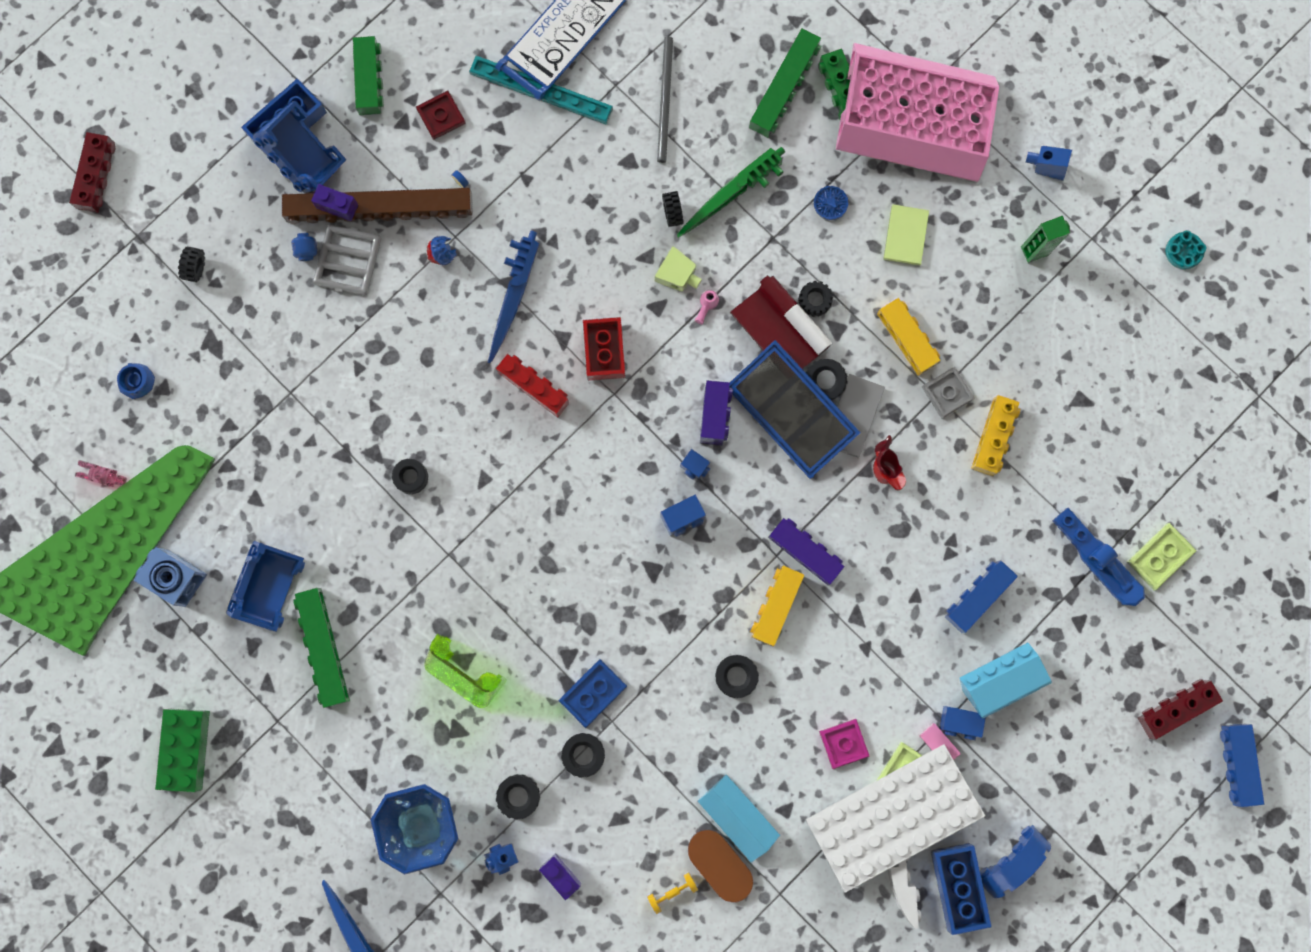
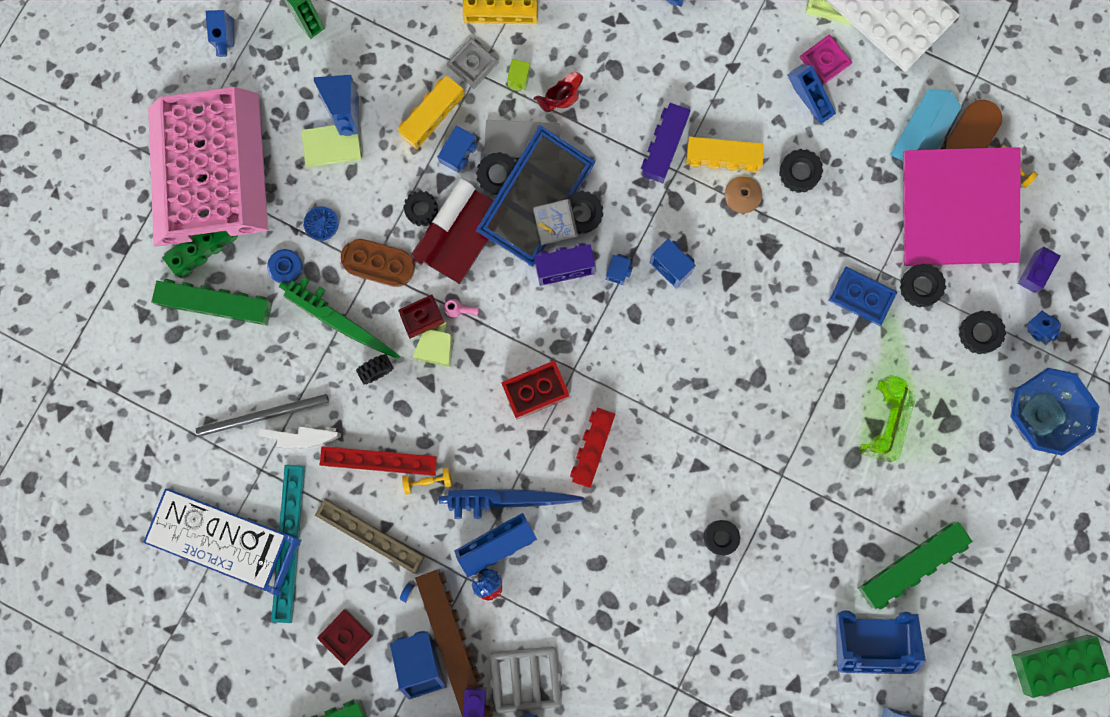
camera: 100 degrees left, 0 degrees up
(392, 168) = (417, 665): none -> blue slope
(474, 268) = (495, 545): none -> blue brick
(522, 162) = (370, 536): none -> dark tan tile
(556, 208) = (407, 484): none -> yellow wheel
(587, 189) = (378, 461): none -> red plate
(631, 125) = (306, 438): none -> white slope
(648, 822) = (961, 206): none -> dark pink tile
(709, 266) = (421, 316): none -> dark red tile
(721, 612) = (737, 201): none -> medium nougat dish
(759, 417) = (555, 222): none -> light grey tile
(762, 462) = (595, 207): none -> black tyre
(775, 244) = (377, 262): none -> dark orange tile
(799, 158) = (284, 266): none -> blue wheel
(812, 715) = (811, 92): none -> blue slope
(863, 350) = (457, 149): none -> blue brick
(920, 431) = (518, 75): none -> lime brick
(941, 251) = (340, 101): none -> blue slope

